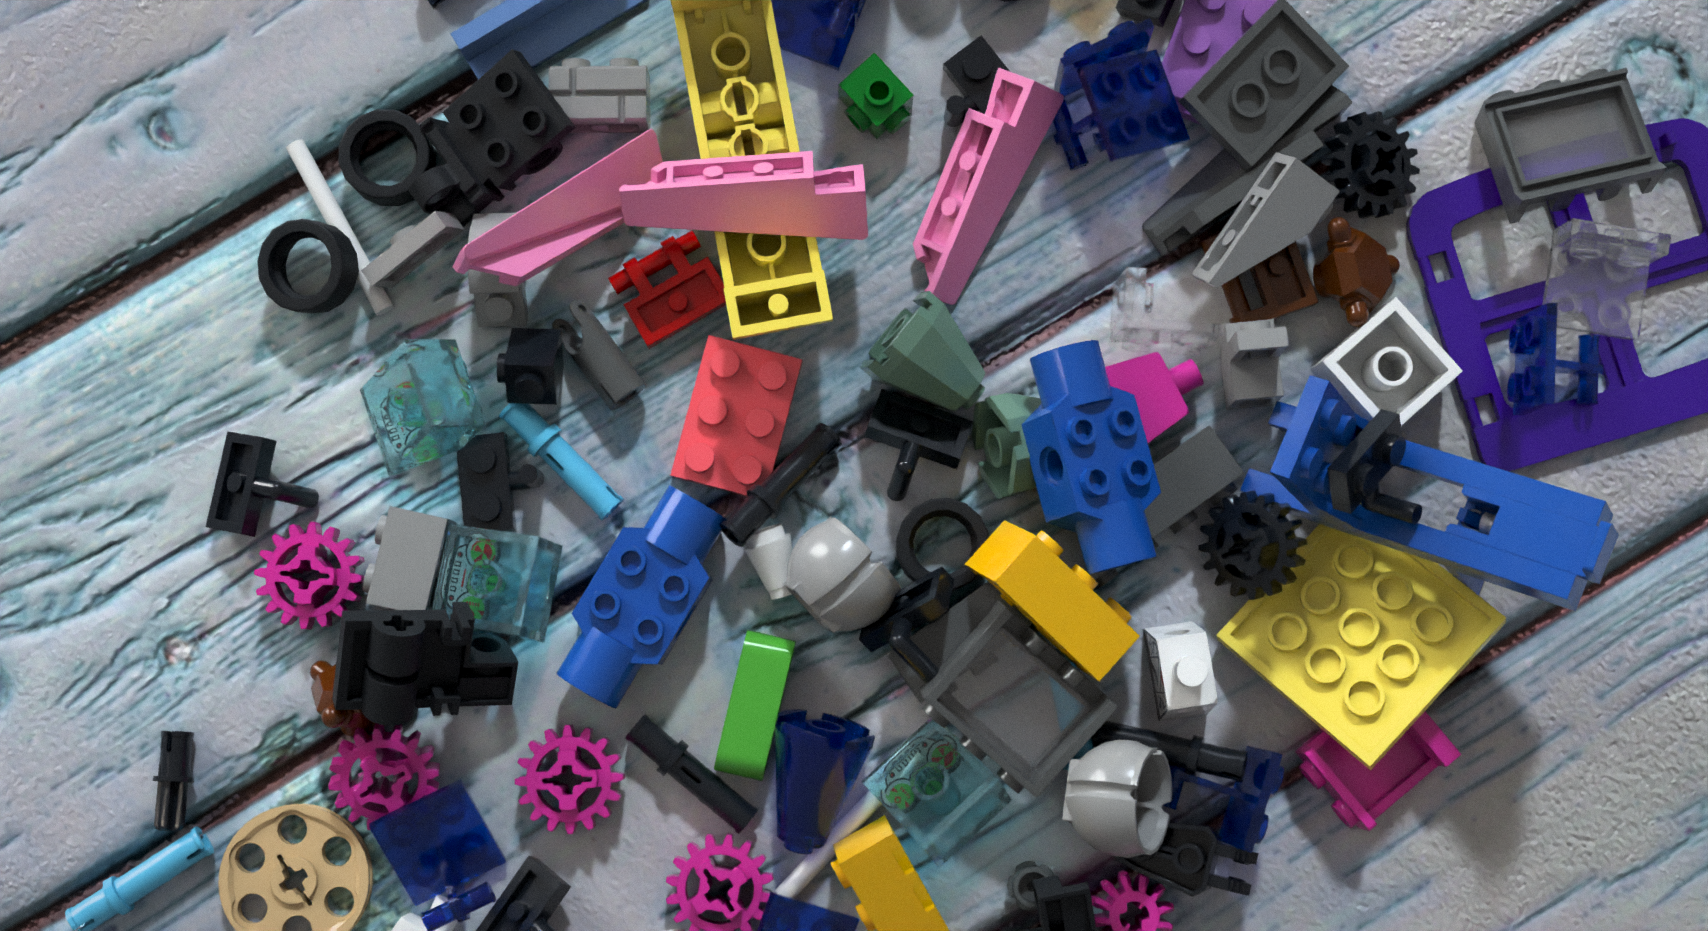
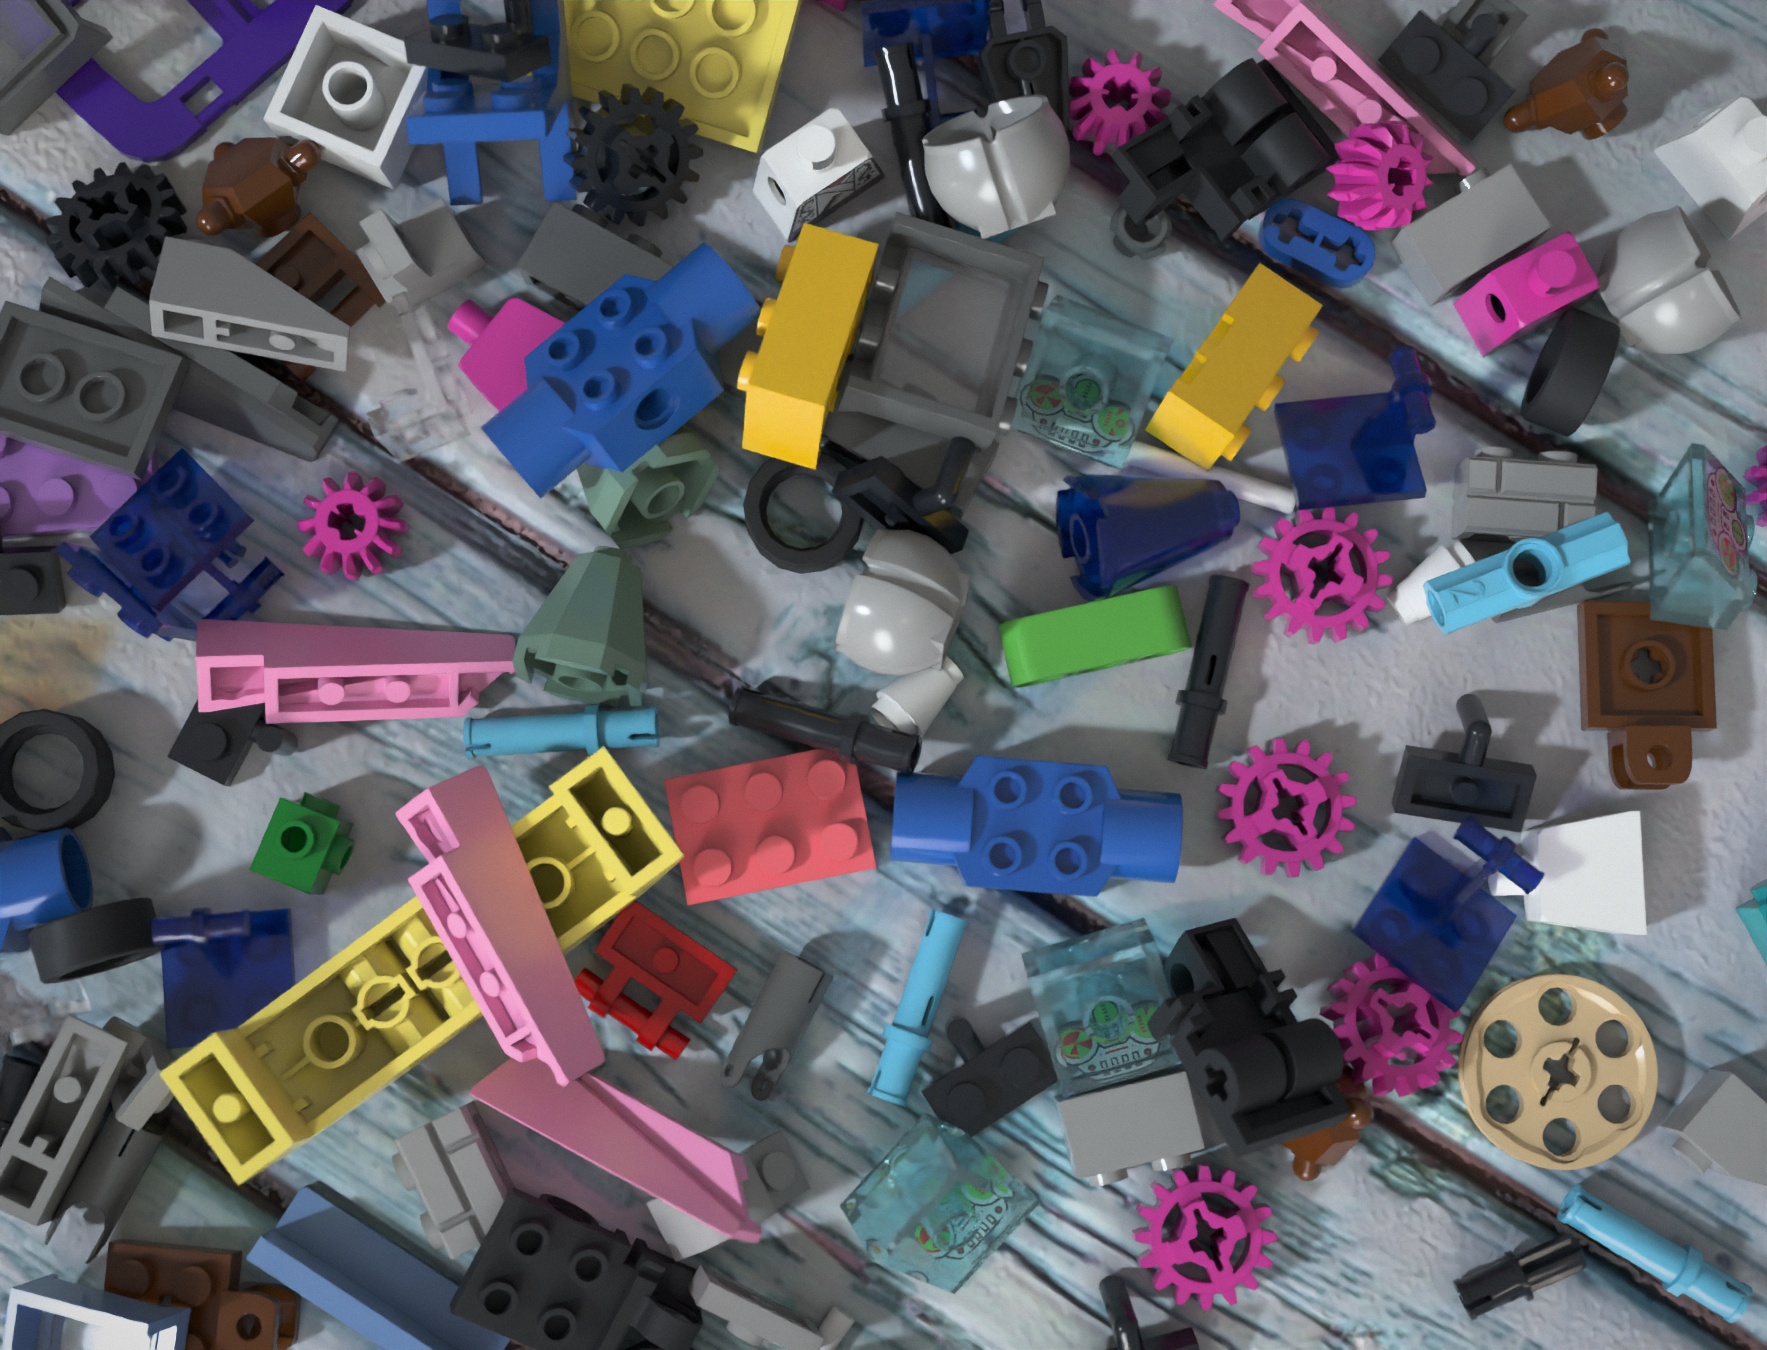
camera: 115 degrees left, 0 degrees up
(532, 366) = (827, 1095): black brick -> none
(868, 306) = (562, 732): none -> medium azure pin
(917, 432) = (685, 601): black plate -> none
(1070, 215) = (331, 513): none -> dark pink gear

